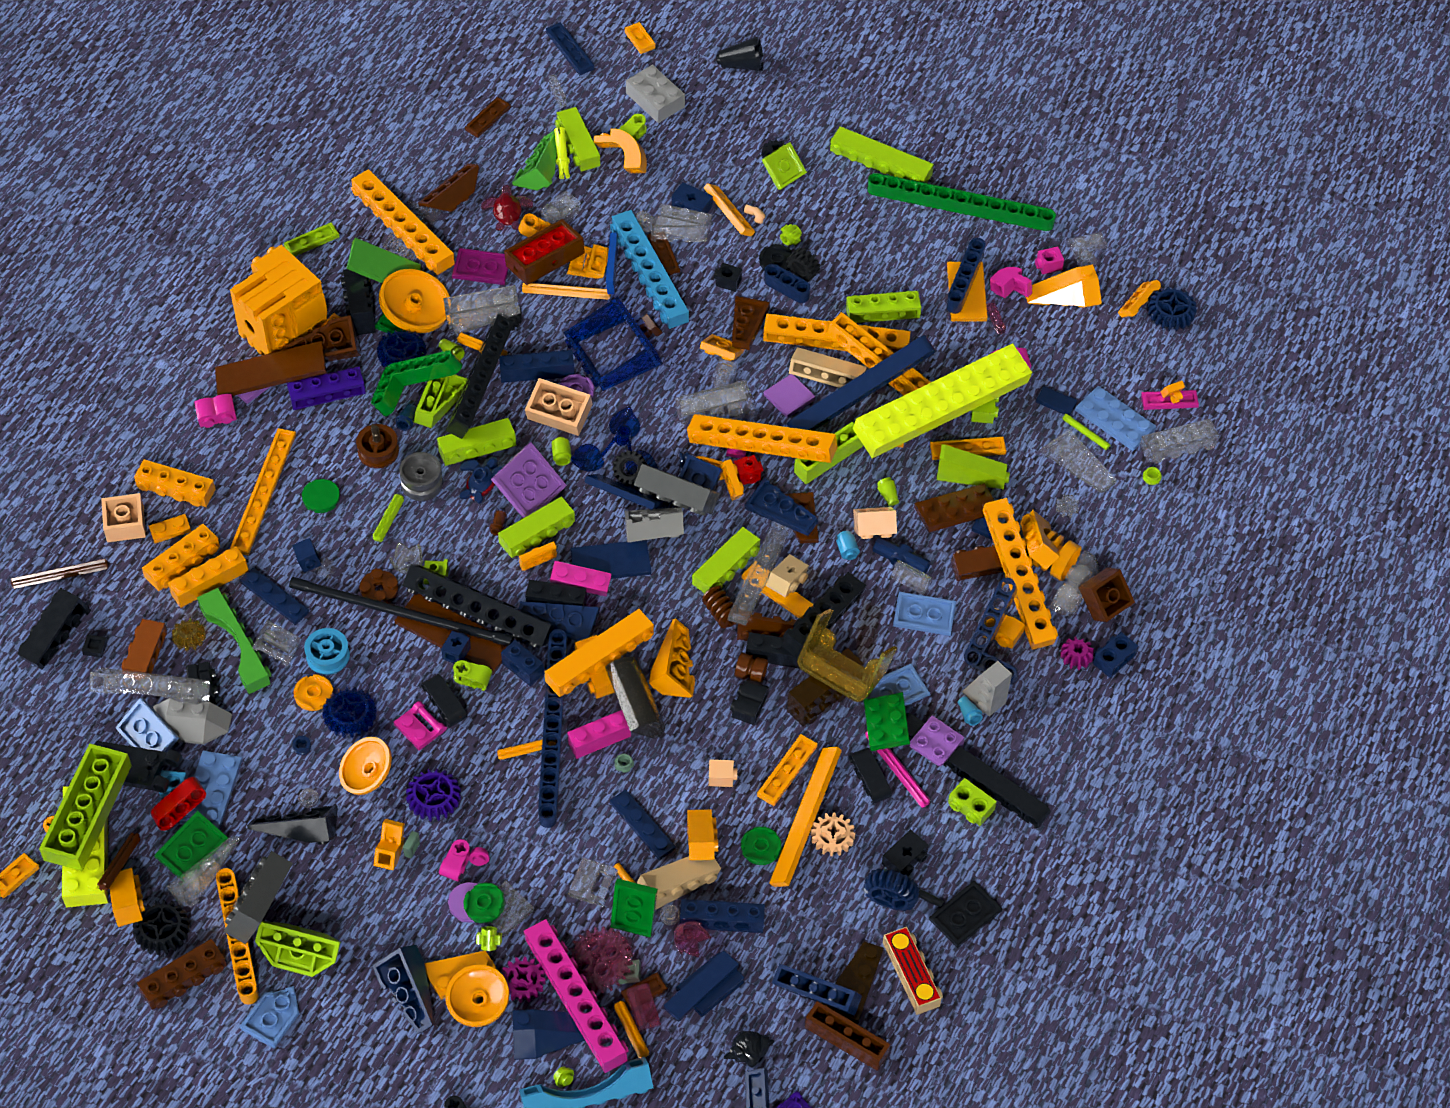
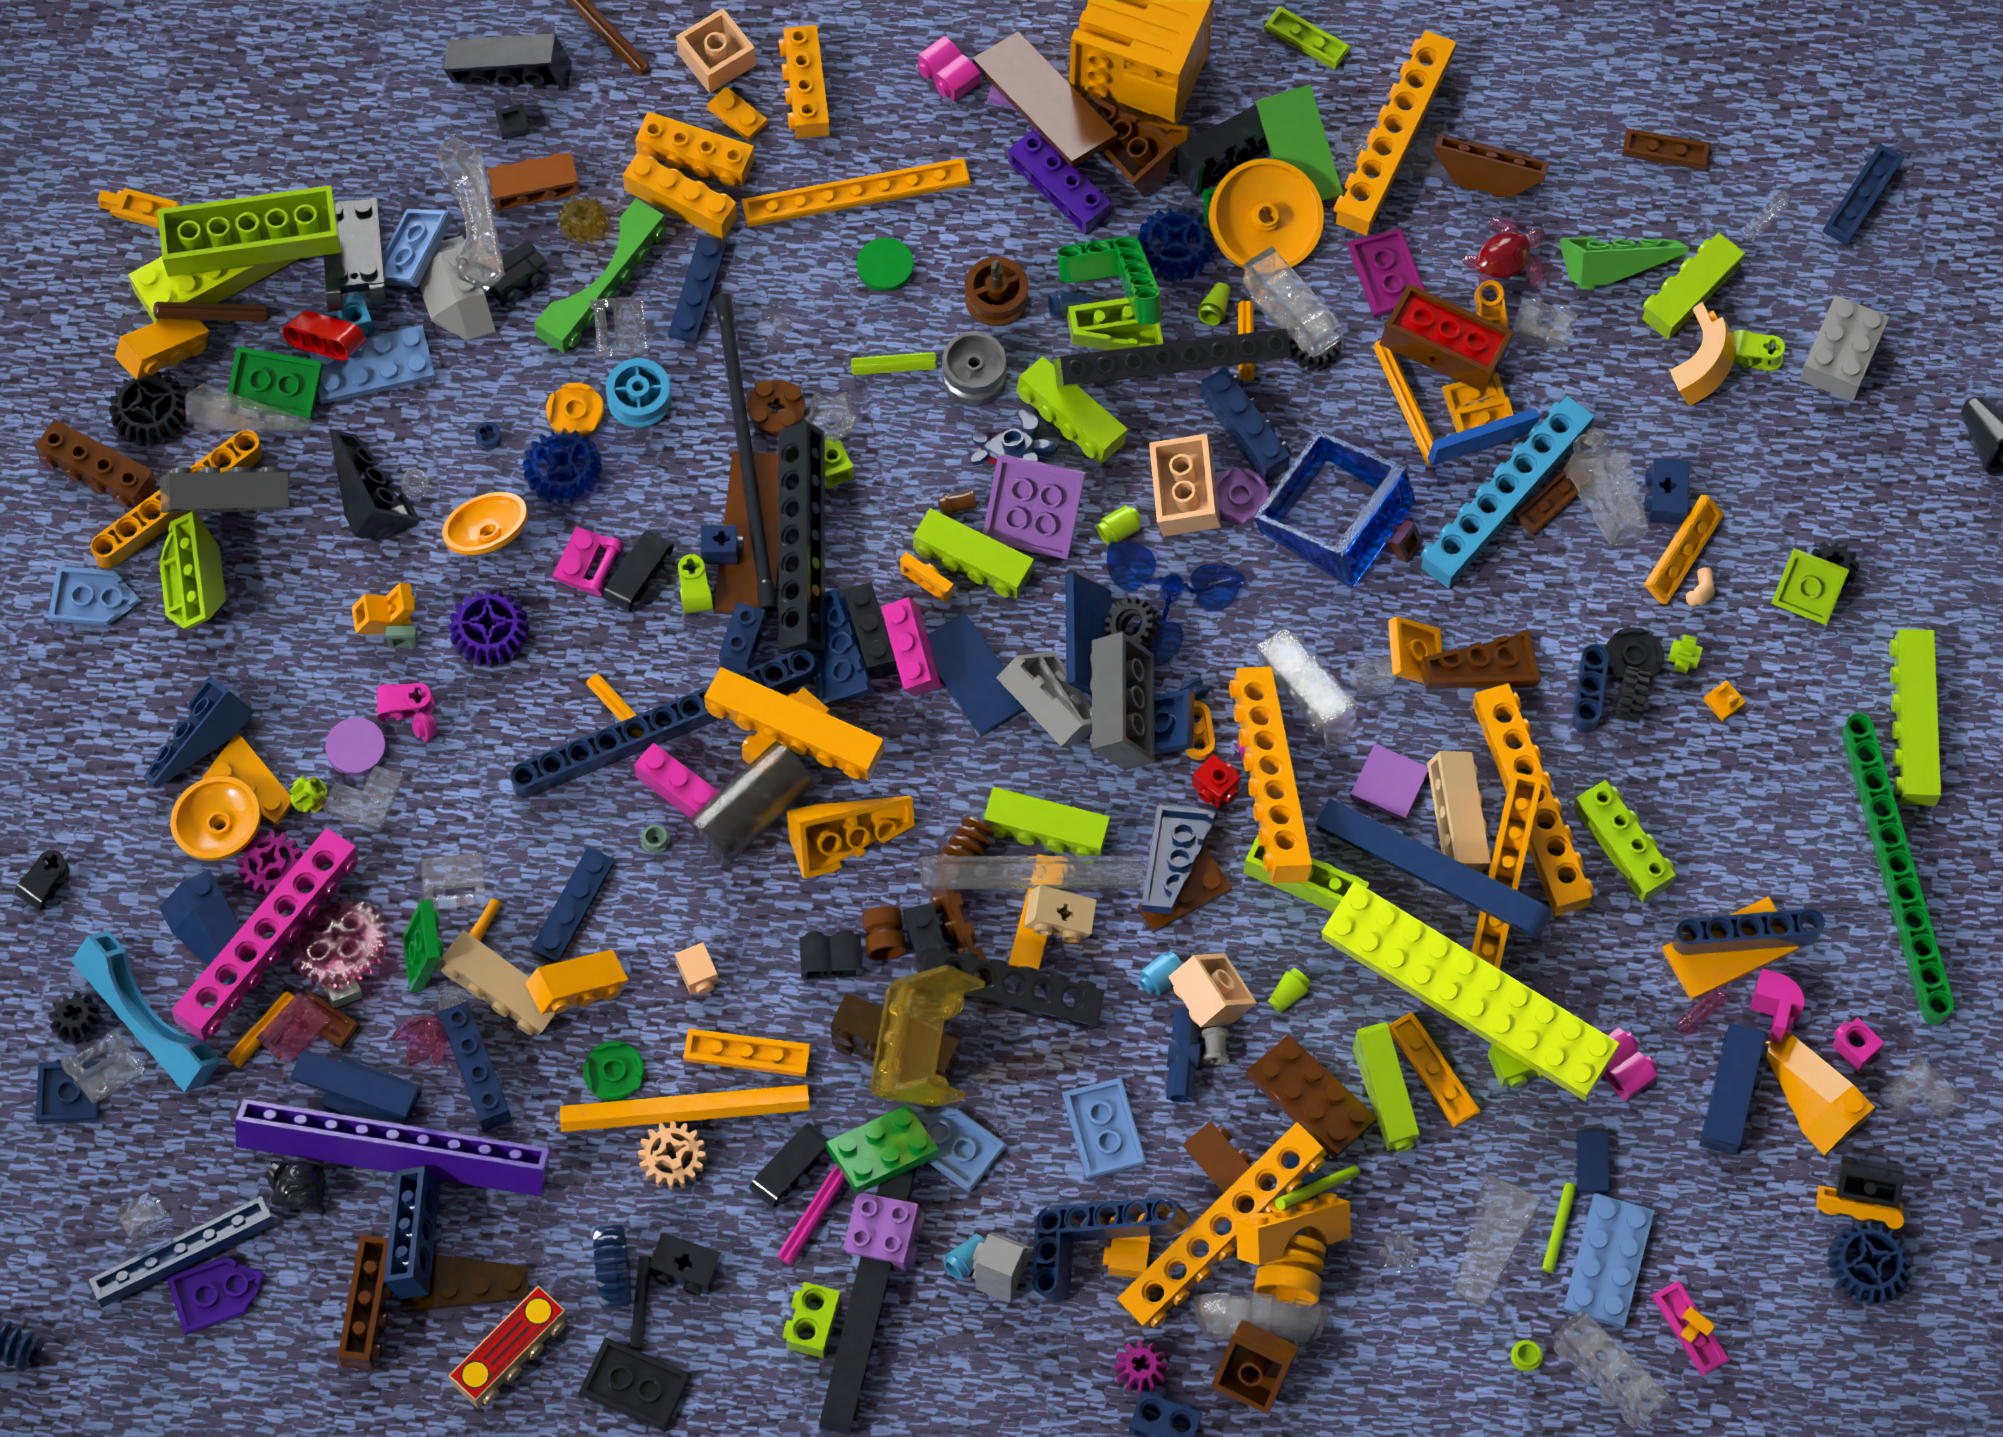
camera: 65 degrees right, 10 degrees up
(306, 555) = (775, 294): dark blue brick -> none
(484, 903) = (355, 764): green tile -> none
(562, 158) = (1639, 284): neon yellow pin -> none
(563, 1076) = (155, 977): lime plate -> none
(640, 38) = (1945, 278): light orange plate -> none
(728, 277) = (1550, 614): black brick -> none
(733, 485) = (1178, 777): light orange plate -> none
(751, 983) = (391, 1147): none -> dark purple brick
(825, 232) = (1724, 700): none -> light orange tile
(904, 538) = (1215, 1046): none -> light grey bush
(911, 577) = (1151, 1083): clear tile -> none
(1023, 527) = (1317, 1187): none -> lime bar
(1049, 321) = (1733, 1088): none -> dark blue brick
(1129, 286) = (1870, 1181): none -> black brick

